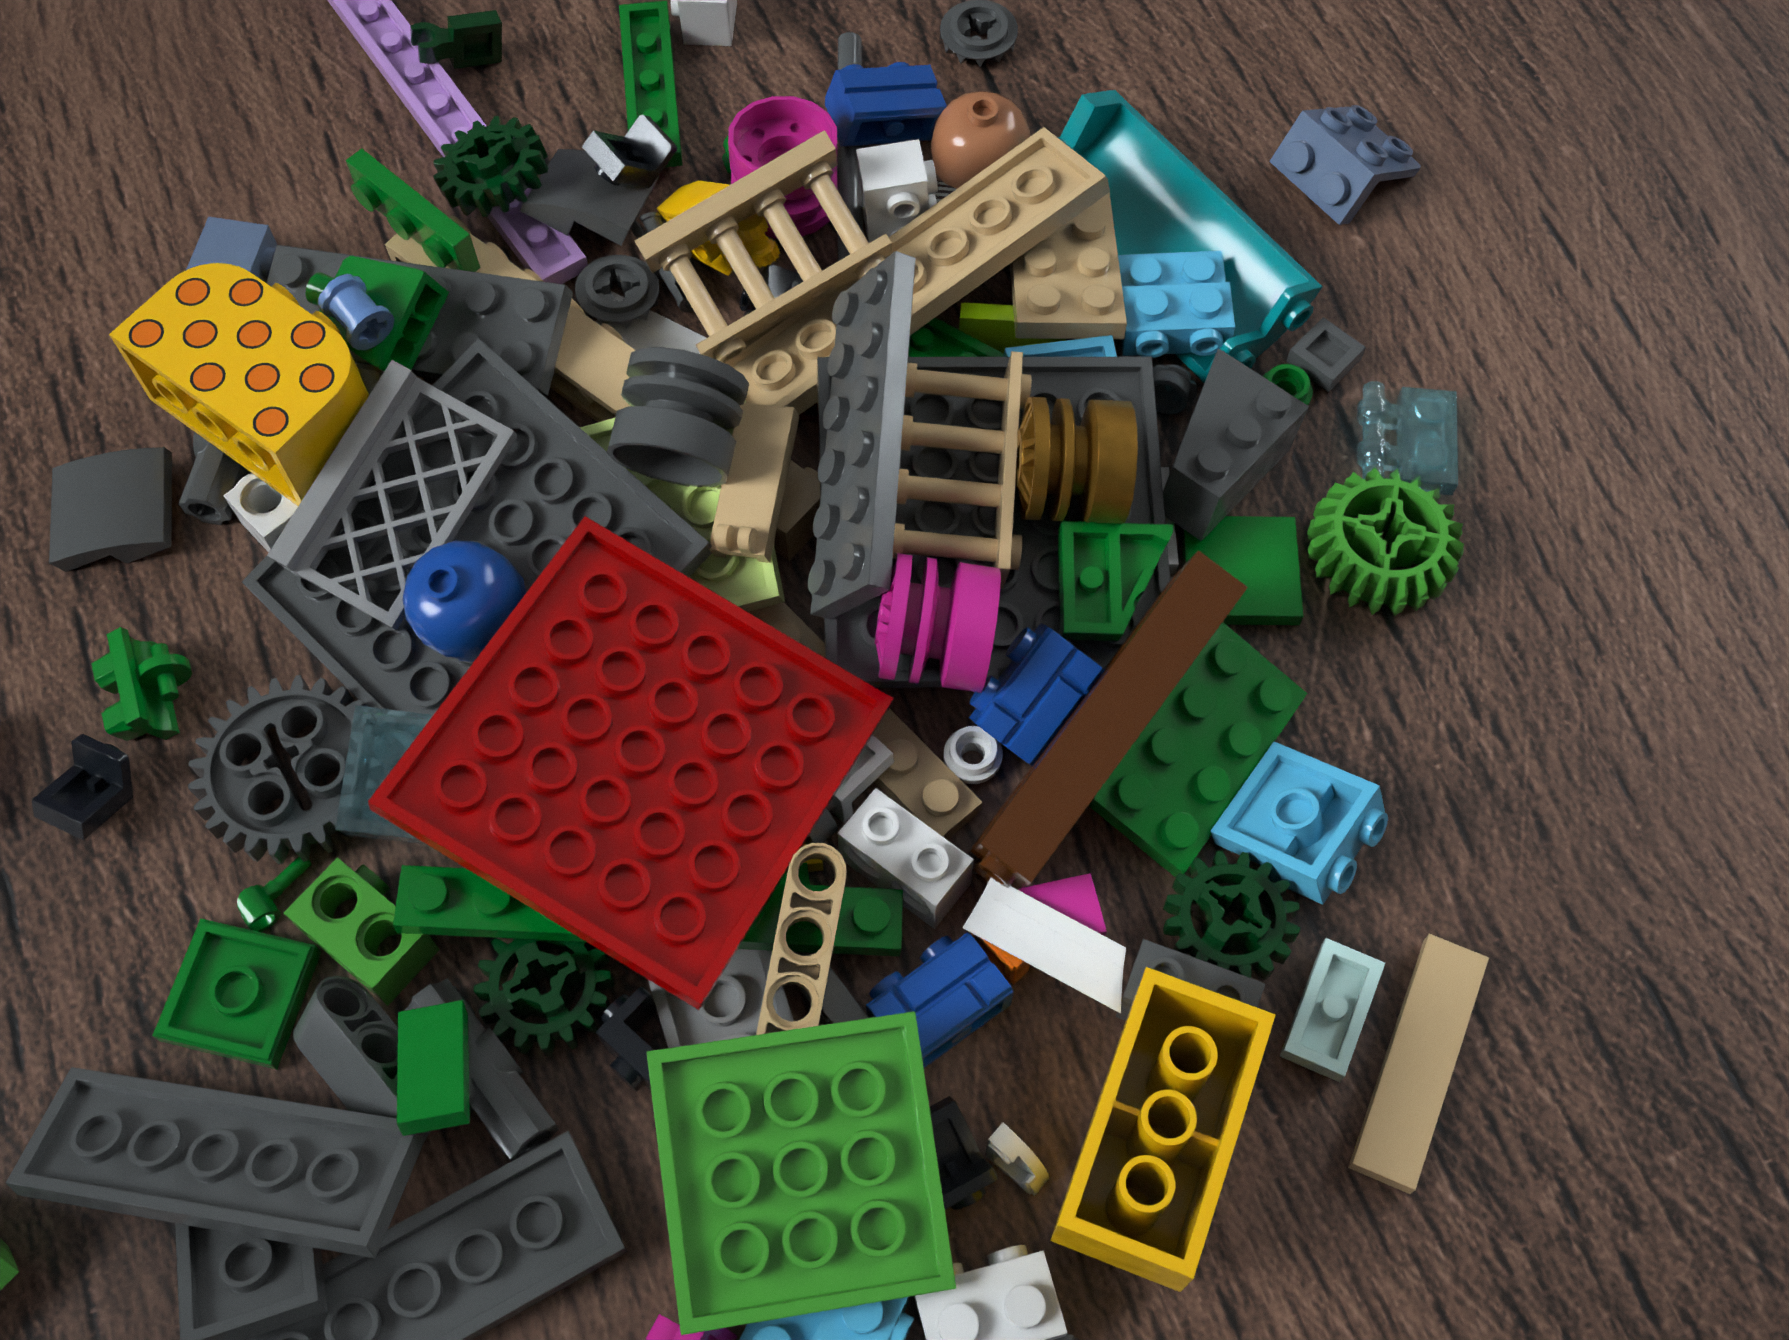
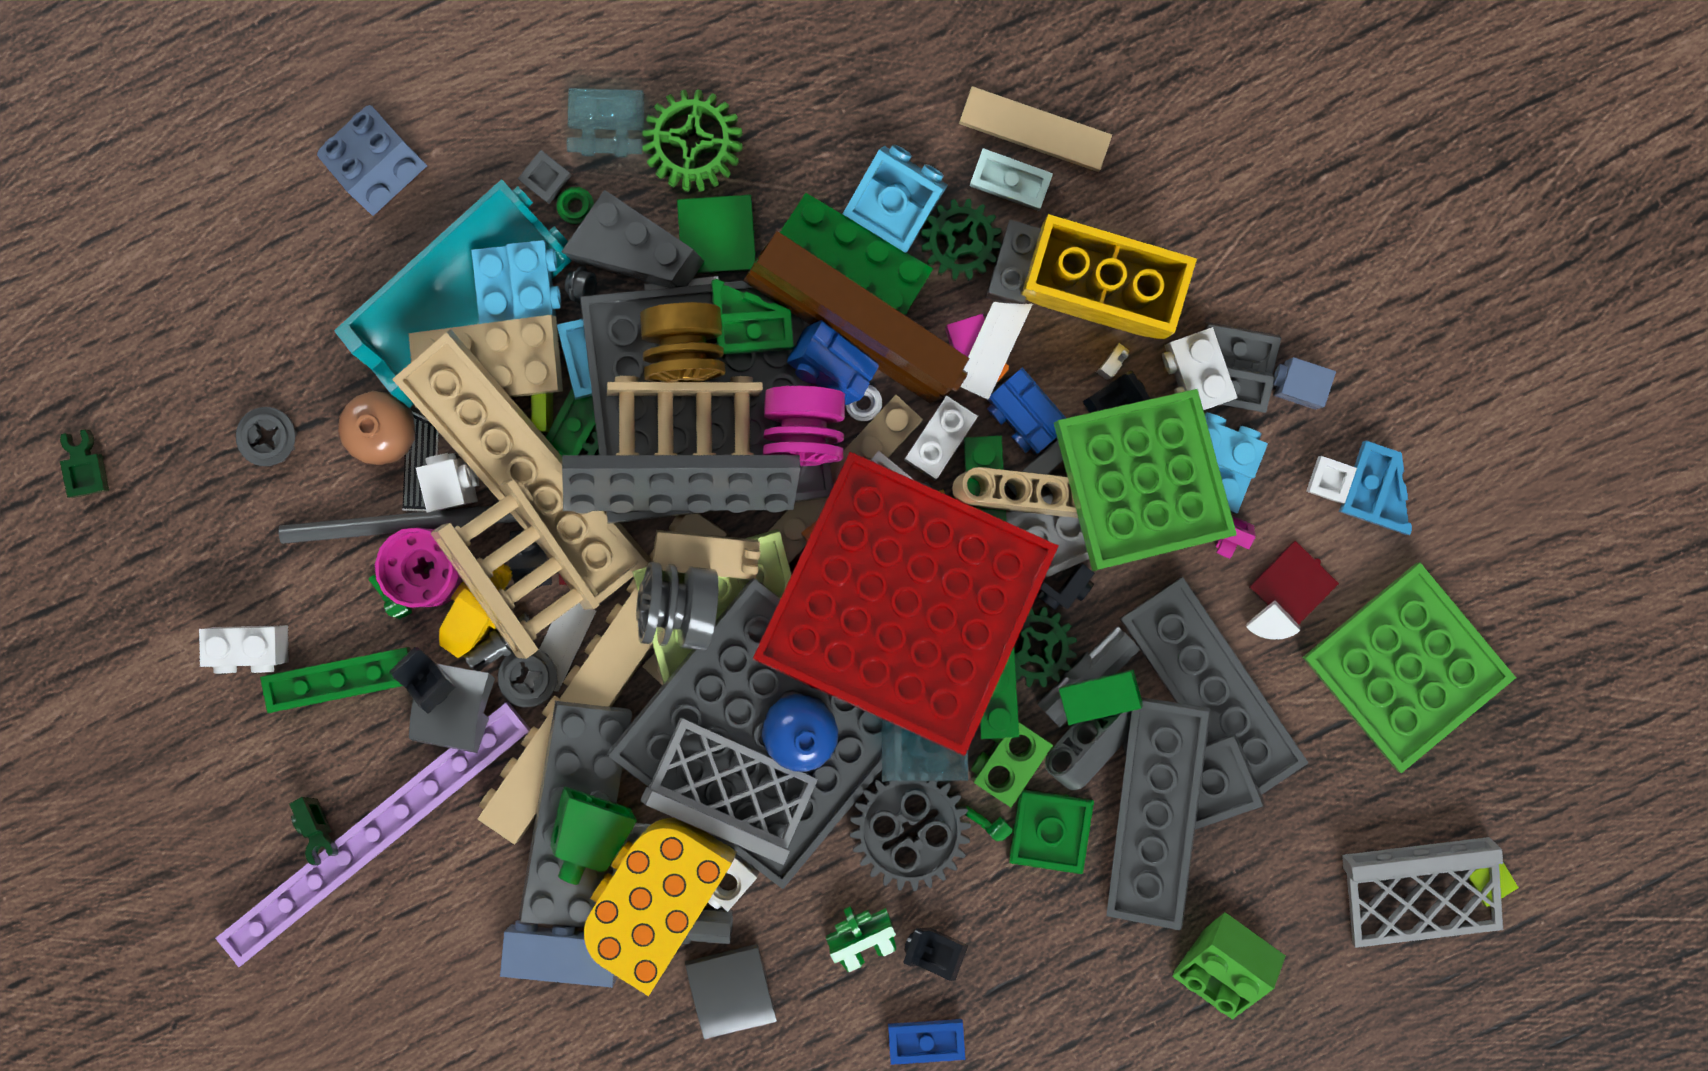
camera: 90 degrees left, 25 degrees up
(356, 312) = (606, 838): medium blue bush -> none
(411, 214) = (499, 826): green plate -> none
(490, 166) = (443, 763): dark green gear -> none
(884, 103) = (354, 500): blue brick -> none

